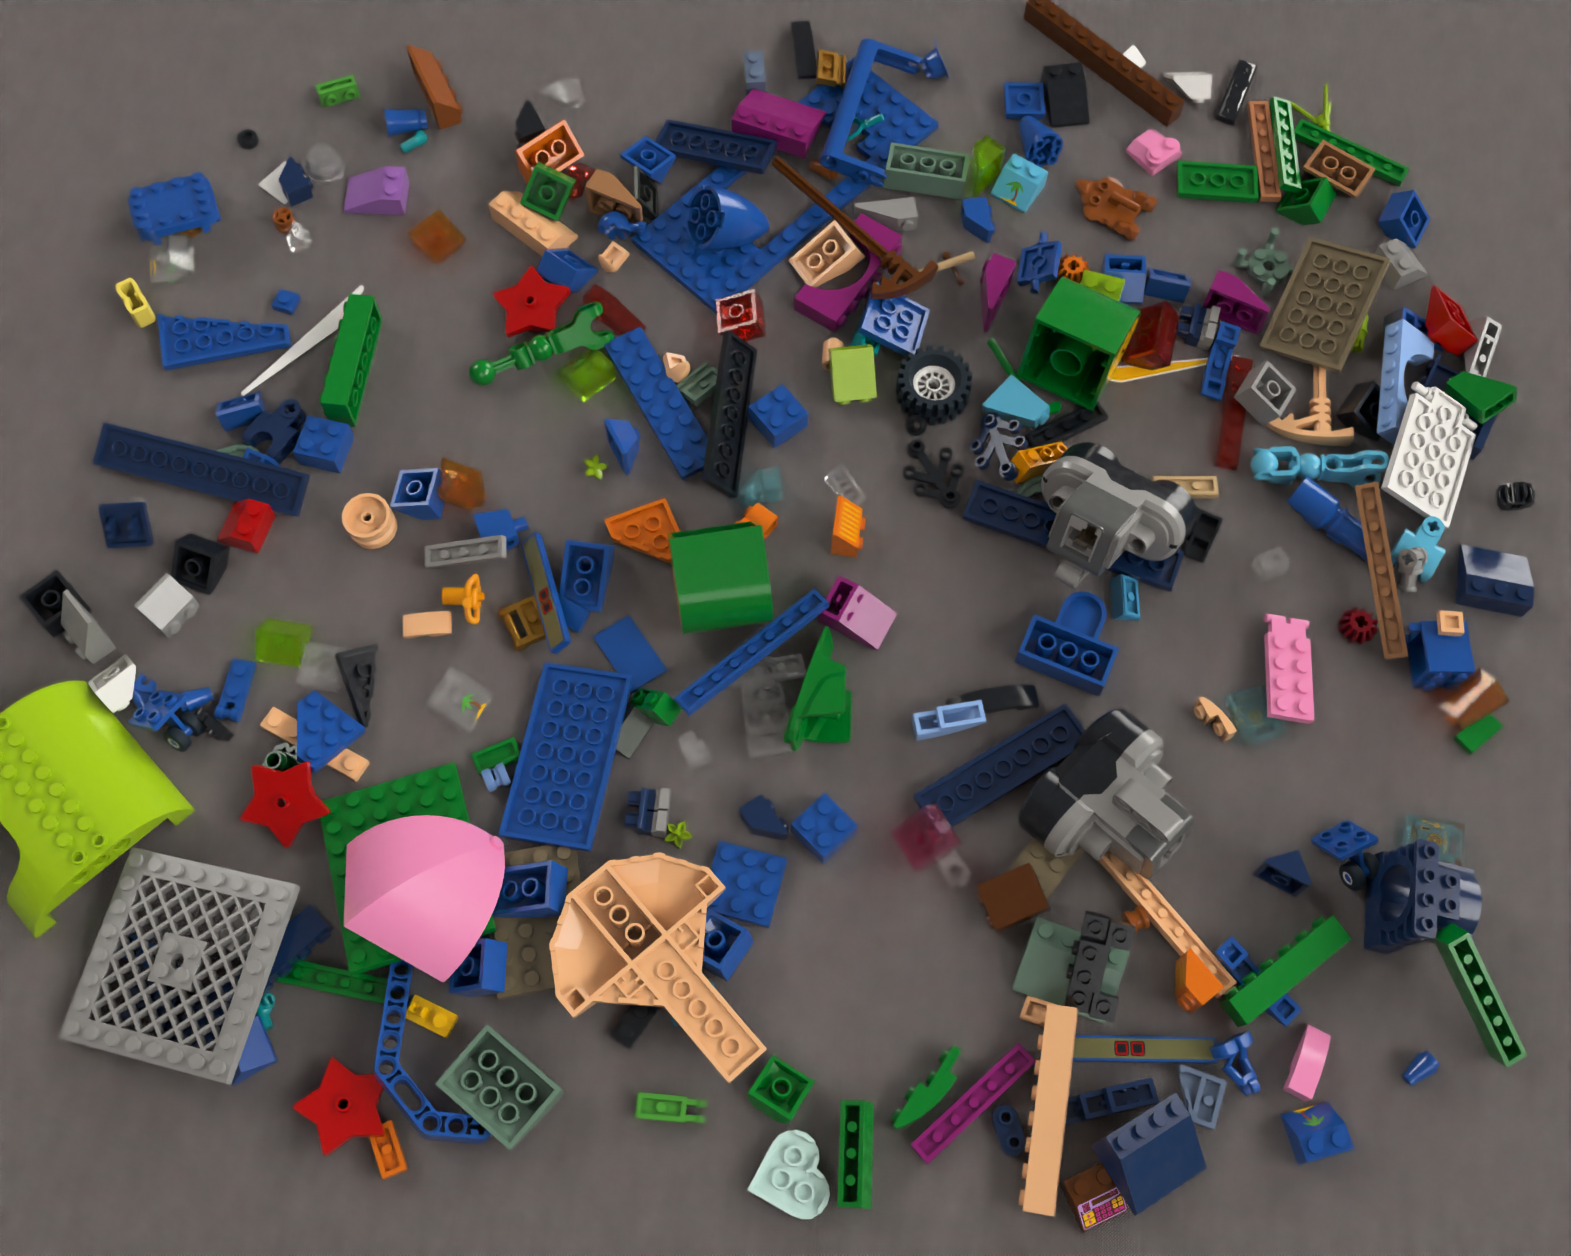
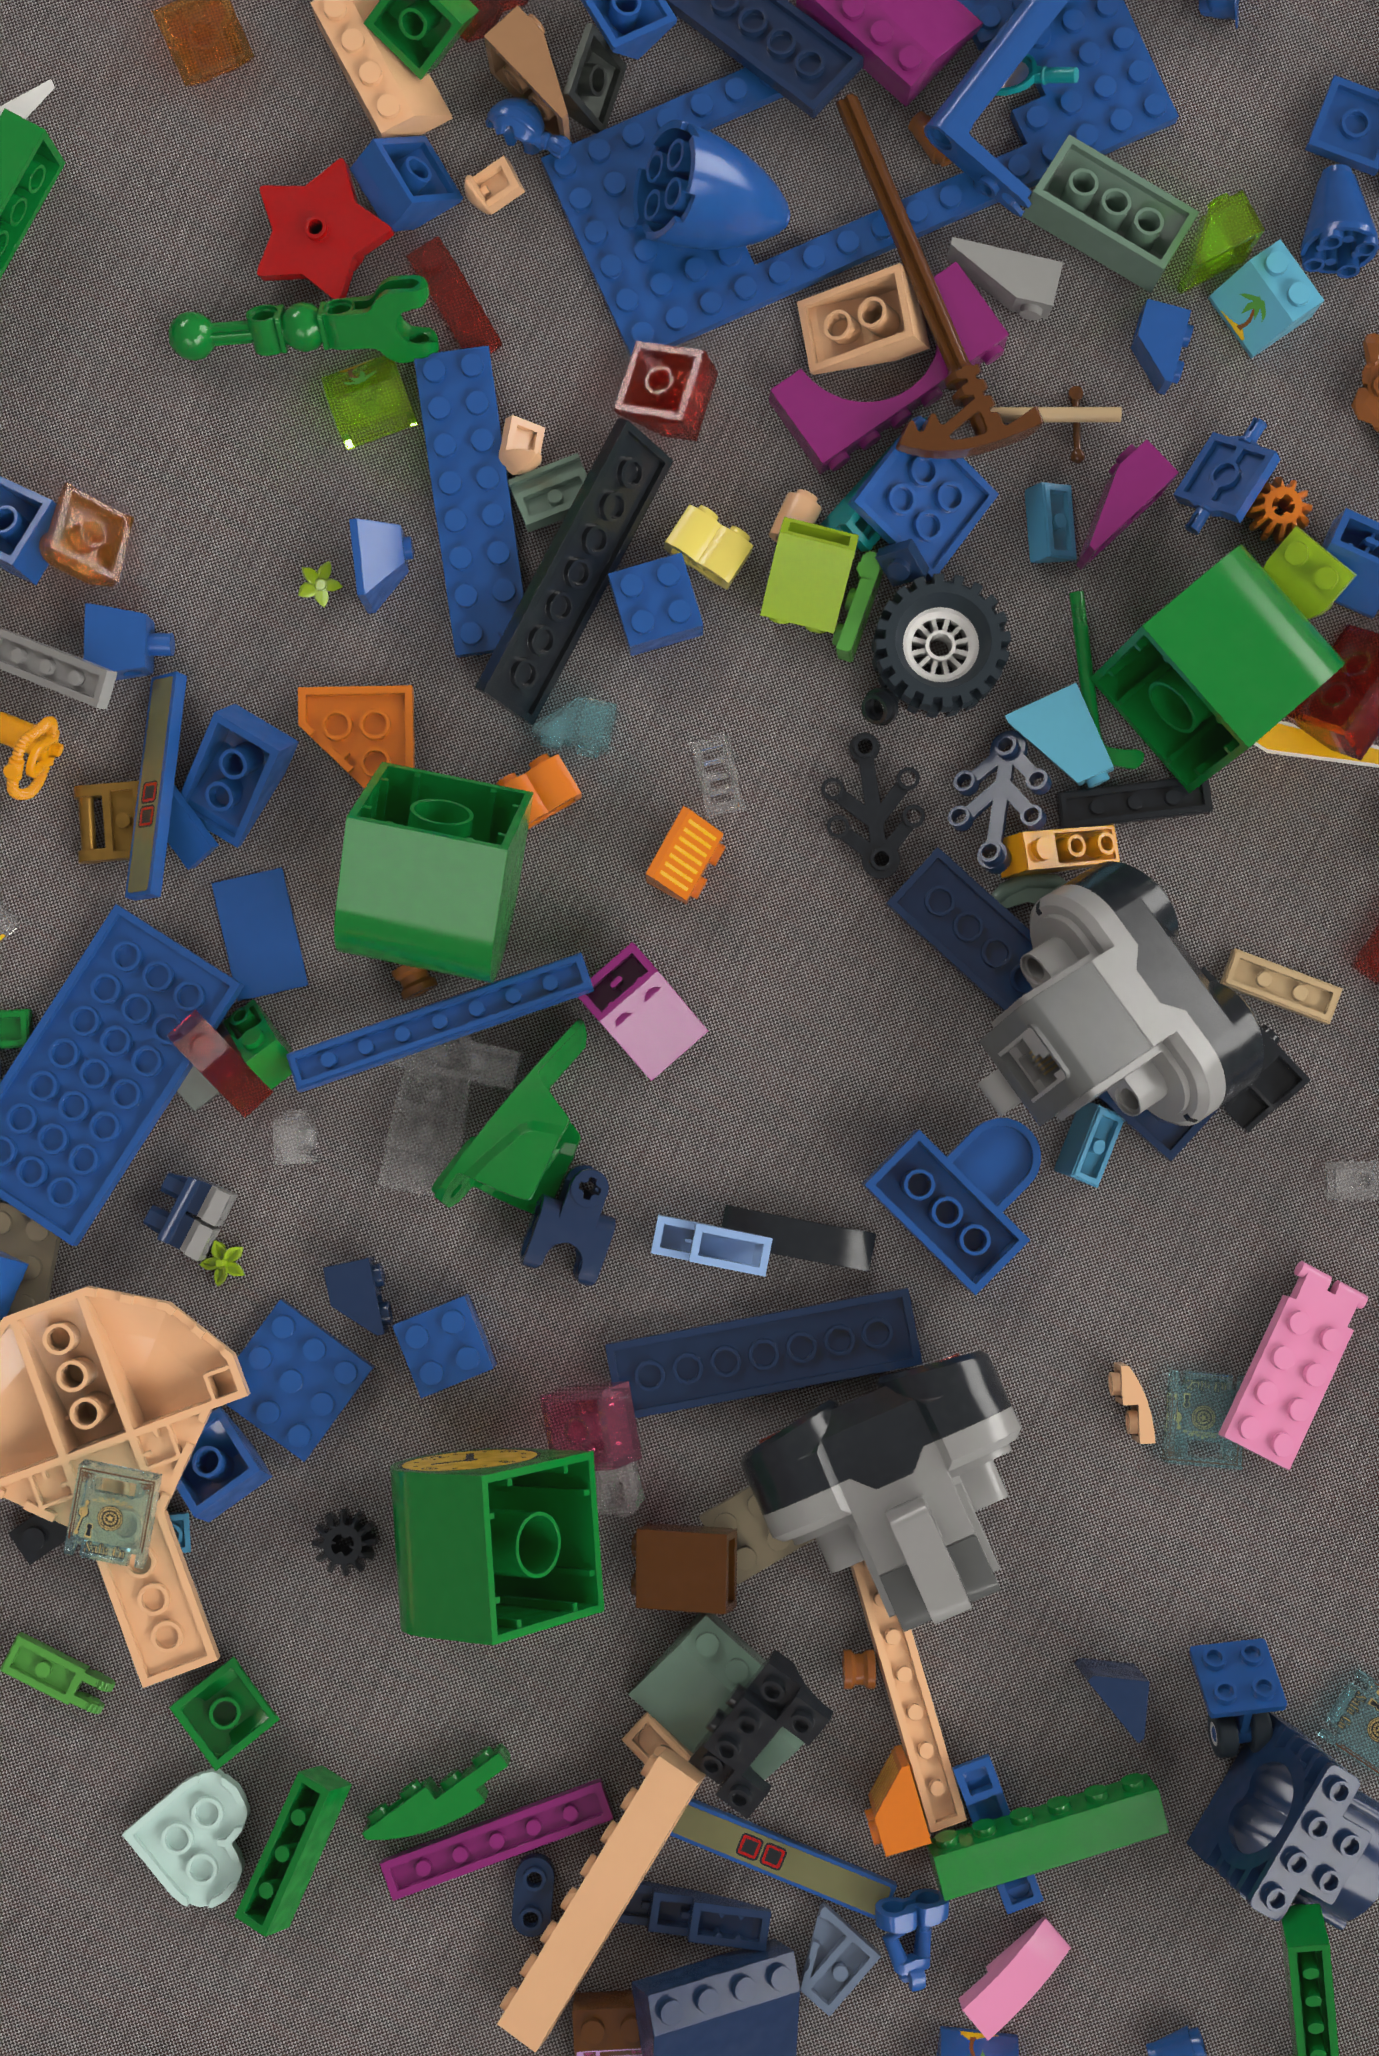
camera: 20 degrees right, 20 degrees up
(636, 718) = (219, 1063): none -> clear red slope
(673, 985) = (112, 1523): none -> clear light blue container
(726, 642) = (413, 981): none -> dark orange wheel
(797, 380) = (709, 546): none -> light yellow brick
(812, 970) = (344, 1555): none -> black gear
(868, 734) = (572, 1220): none -> dark blue piece
(882, 381) = (859, 604): none -> bright green hinge
(896, 351) = (902, 562): none -> dark blue plate
(900, 909) = (495, 1542): none -> green brick
(961, 315) = (1050, 523): none -> dark azure slope

